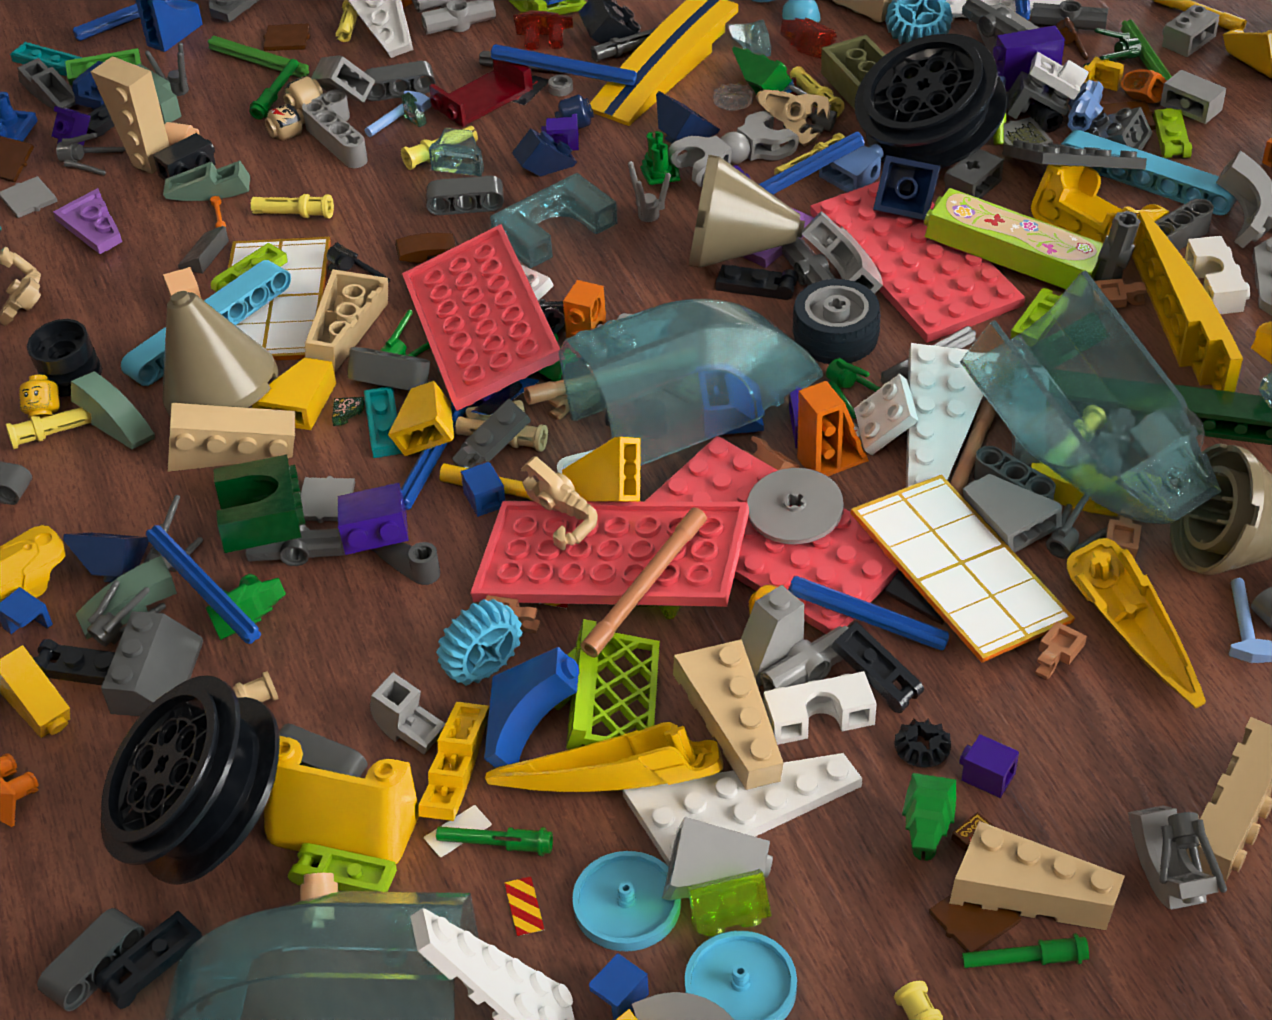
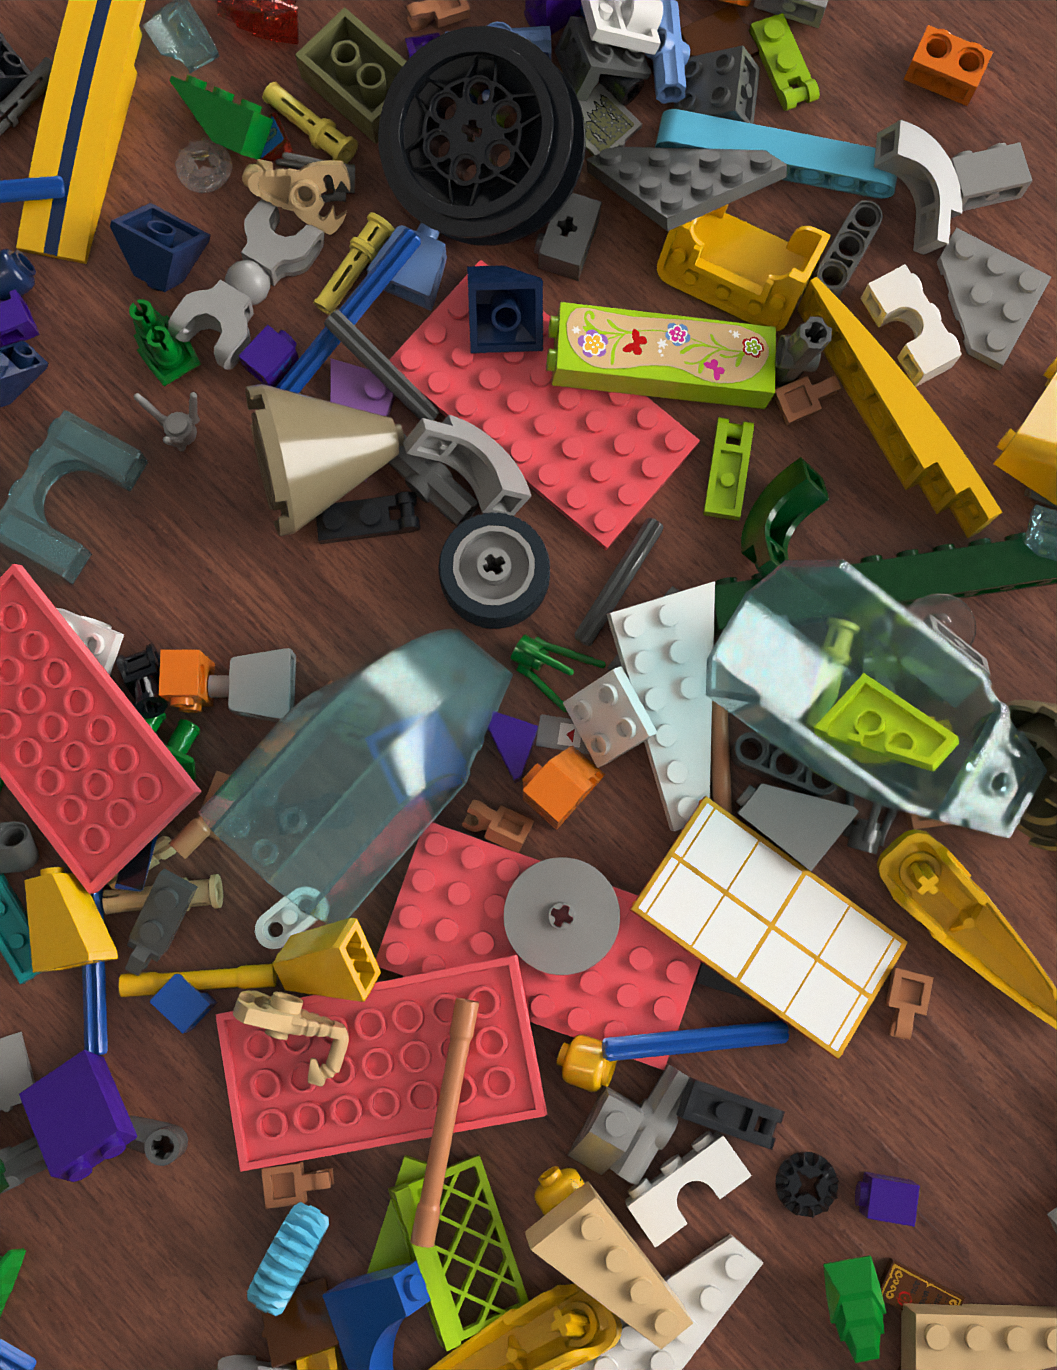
camera: 25 degrees left, 35 degrees up
(461, 698) = (302, 1327): none -> reddish brown piece
(797, 189) = (380, 366): none -> dark grey axle
(1113, 442) = (886, 725): none -> neon yellow wing

